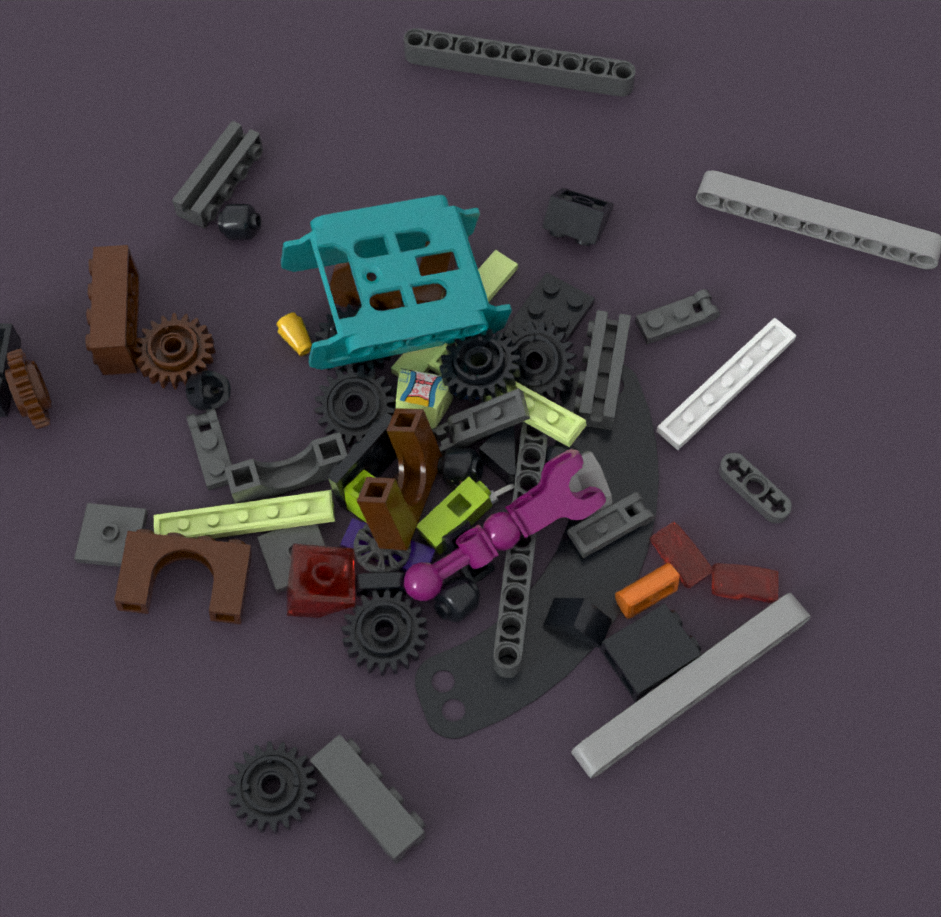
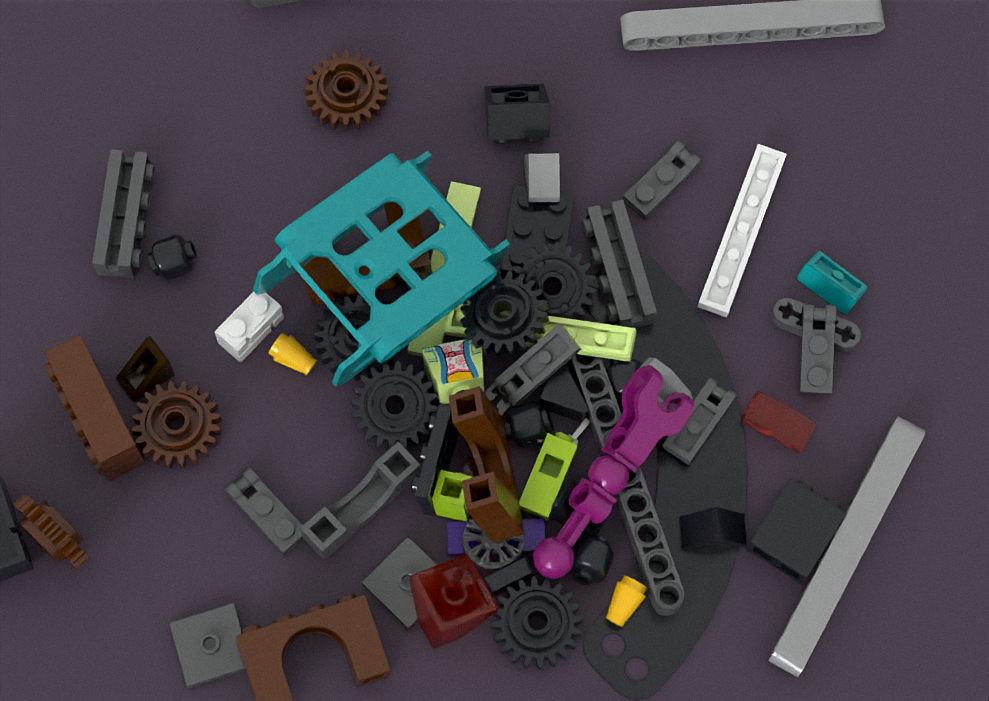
camera: 30 degrees left, 5 degrees up
(172, 298) = (145, 370): none -> dark brown slope
(203, 390) = (228, 454): black piece -> none
(249, 516) = (341, 567): yellowish green tile -> none
(272, 296) = (249, 325): none -> white brick
(462, 149) = (346, 108): none -> reddish brown gear
(470, 646) = (625, 600): none -> yellow cone
(572, 272) = (542, 177): none -> light grey slope
(647, 590) = (765, 470): orange brick -> none
(744, 508) = (817, 350): none -> dark grey plate
(746, 581) = (850, 423): clear red slope -> none
(787, 458) = (832, 282): none -> teal slope

